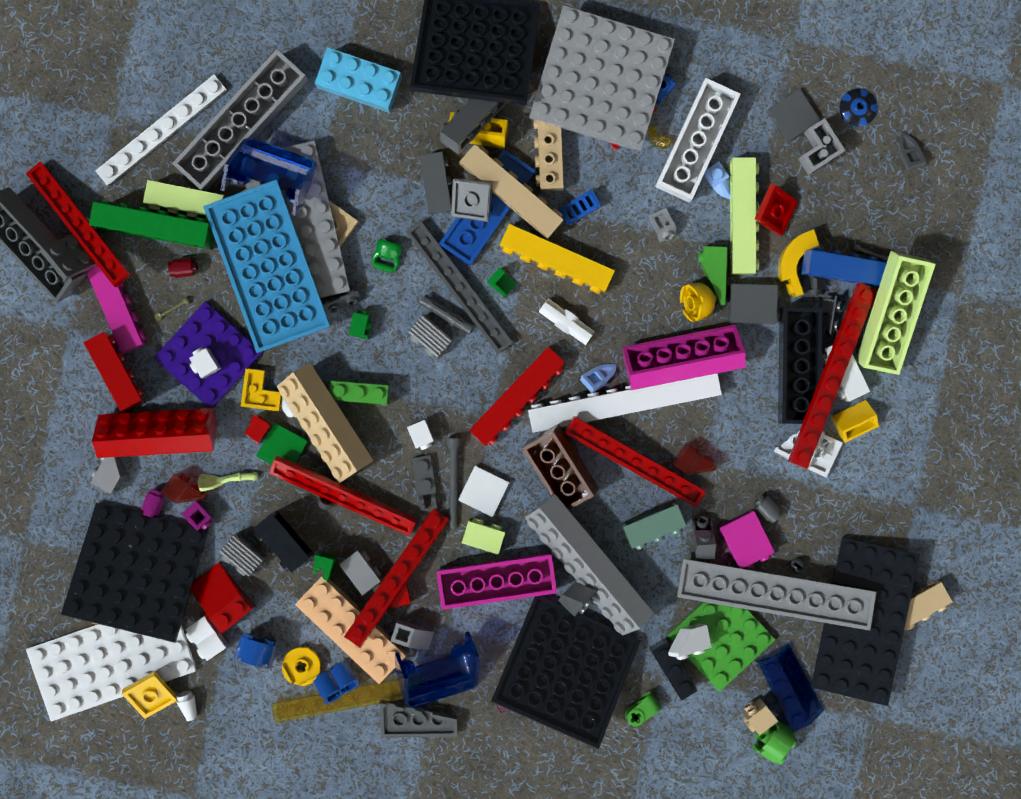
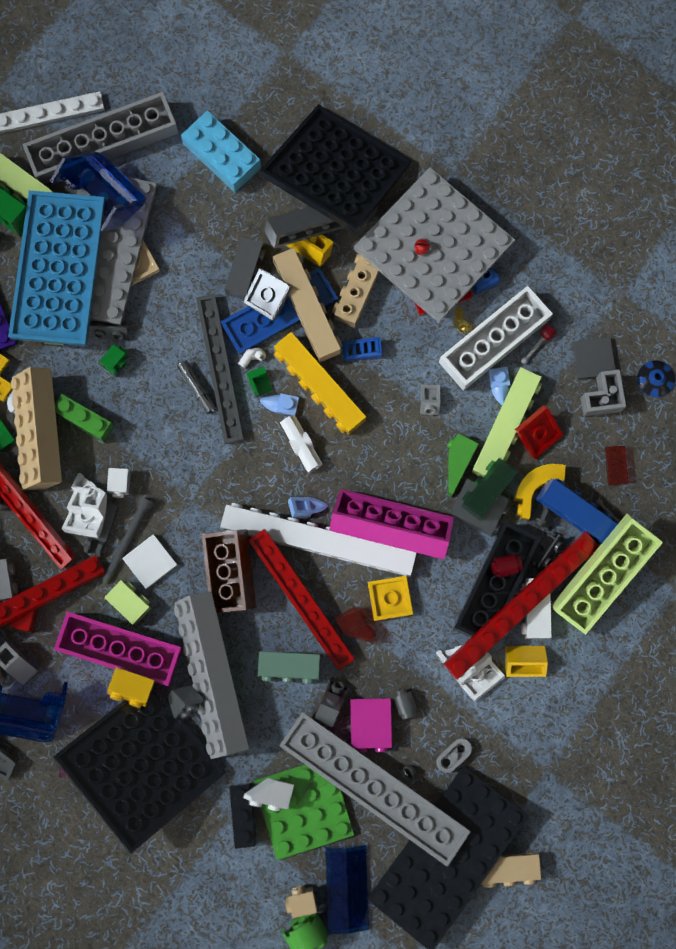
camera: 20 degrees right, 10 degrees down
(388, 250) = (173, 307): green piece -> none
(404, 472) = (85, 509): none -> white slope
(430, 336) = (172, 399): light grey brick -> none
(481, 260) = (252, 354): none -> white arm
(516, 396) = (222, 489): red brick -> none
(525, 609) = (130, 687): none -> yellow brick
(530, 293) = (281, 403): none -> light blue plate
(595, 91) = (420, 249): none -> red hinge
(644, 707) = (199, 841): bright green piece -> none
(698, 301) = (430, 480): yellow cylinder -> none
(711, 422) = (390, 598): none -> yellow plate
(740, 113) = (546, 333): none -> hinge
(756, 285) = (488, 488): none -> clear green brick
(804, 347) = (506, 565): none -> dark red brick
(831, 533) = (453, 755): none -> light grey plate
(858, 207) = (616, 465): none -> clear red plate

